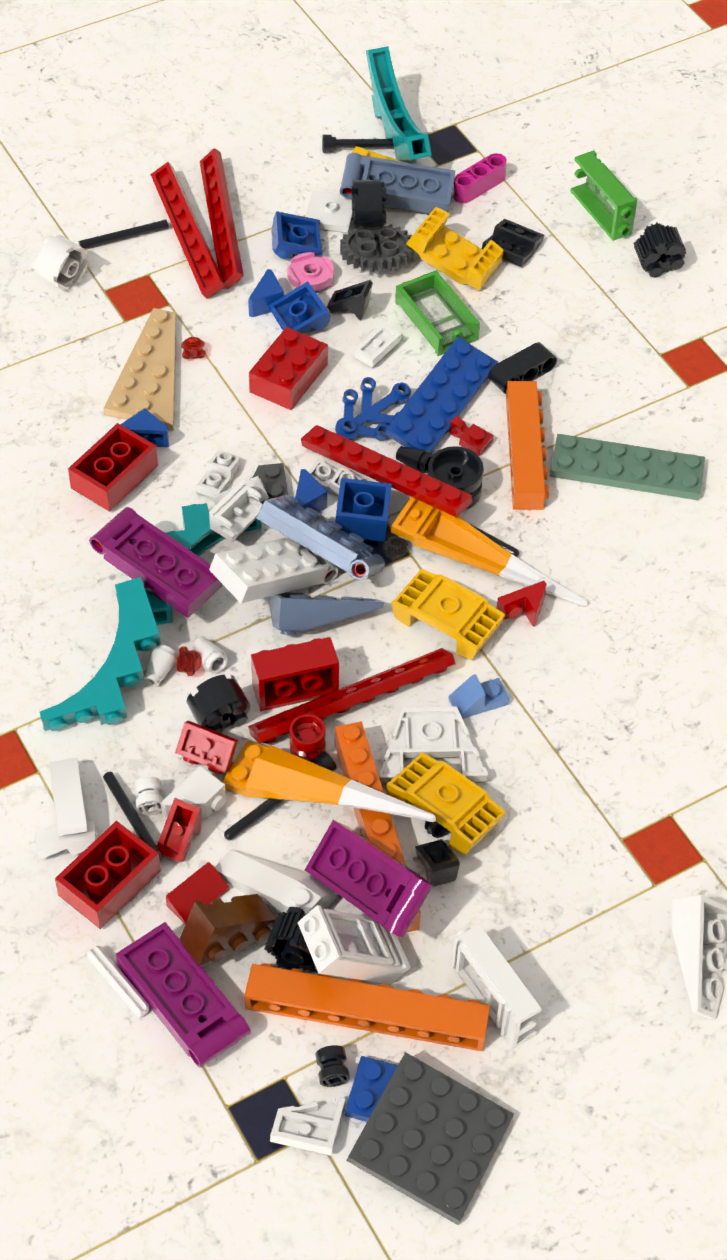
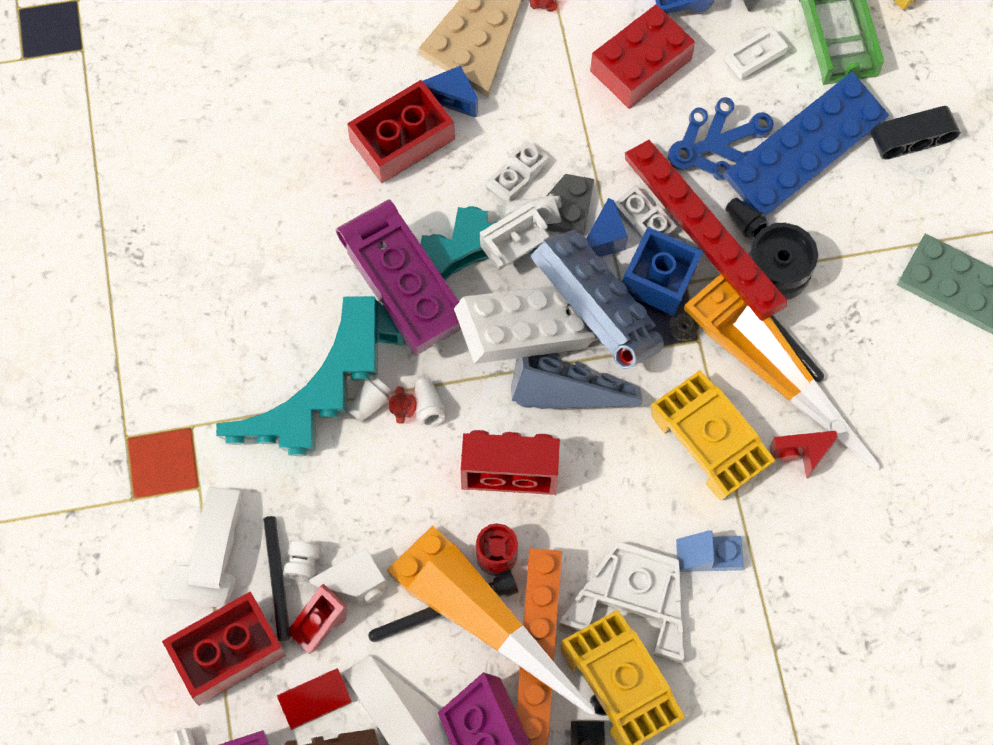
camera: 20 degrees right, 15 degrees up
(206, 747) = (381, 525): bracket -> none
(219, 703) = (413, 475): black brick -> none
(359, 692) = (569, 505): red plate -> none
(471, 438) = (823, 209): red plate -> none
(525, 445) = (881, 239): orange brick -> none

